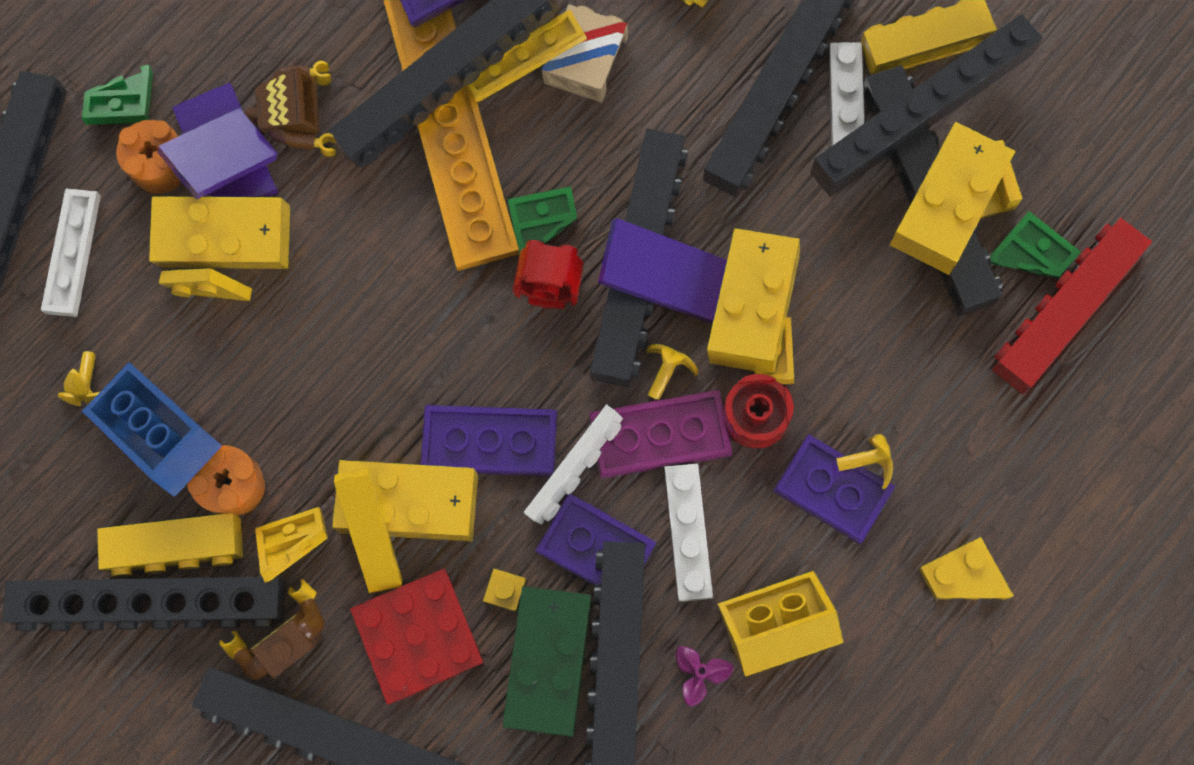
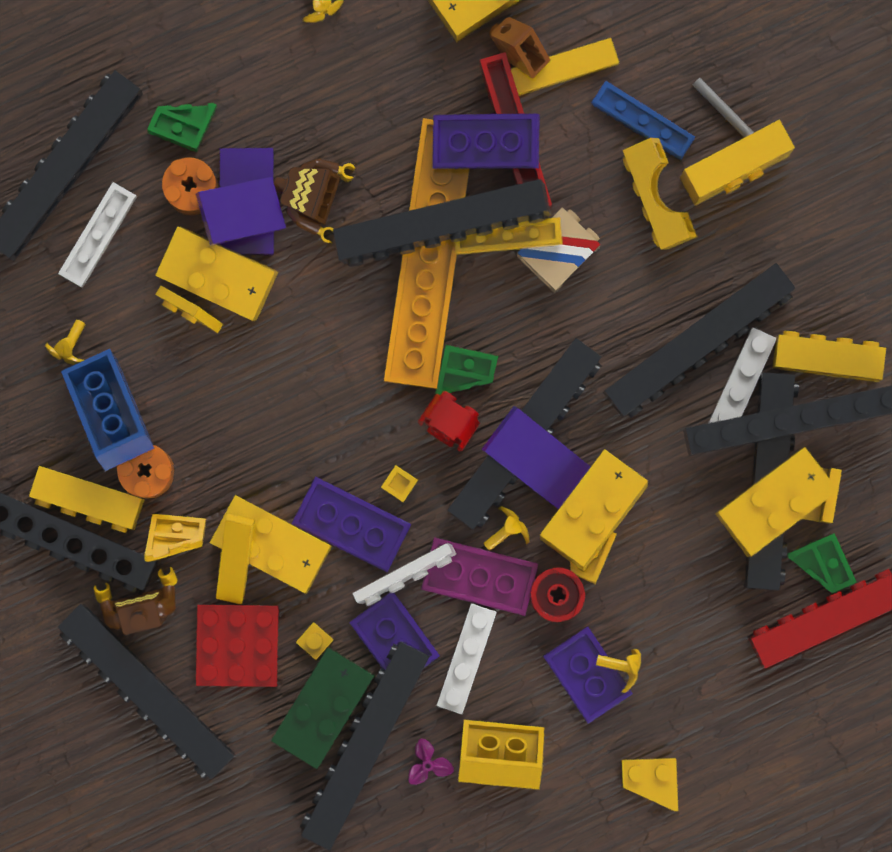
camera: 20 degrees right, 10 degrees up
(523, 371) = (399, 483): none -> yellow plate

